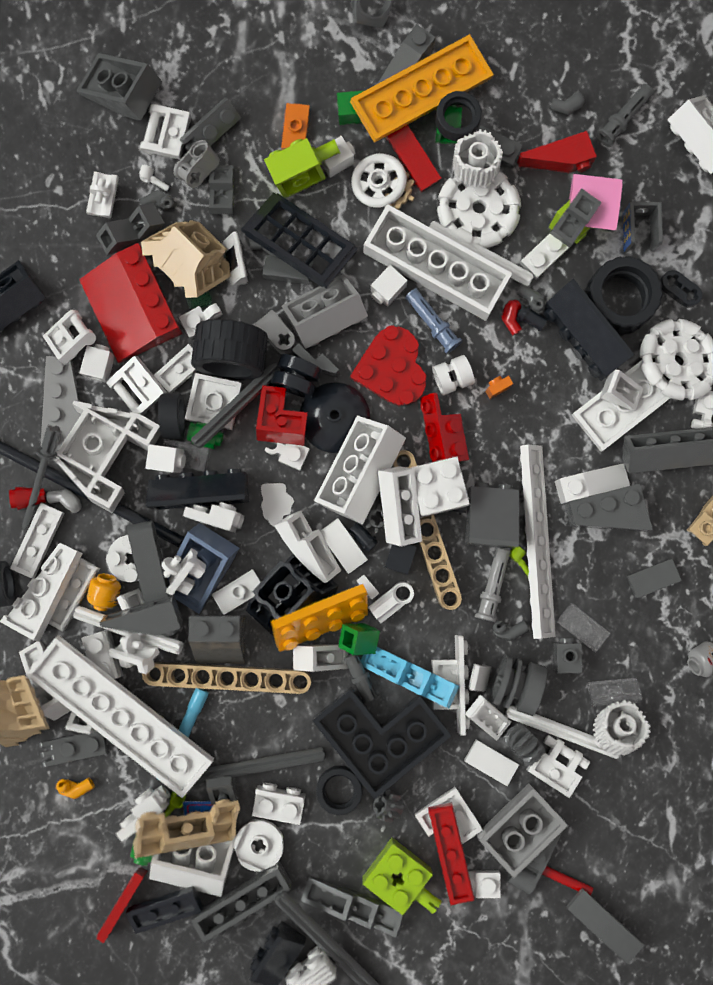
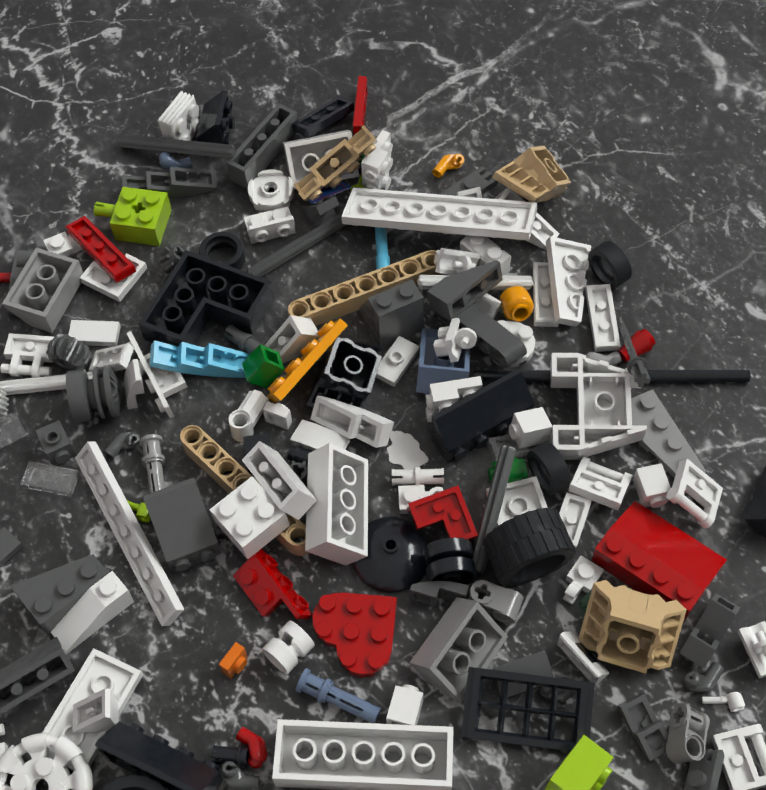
camera: 155 degrees right, 25 degrees down
(279, 471) = (417, 476): none -> white pin
(339, 930) = (167, 161): none -> sand blue arm

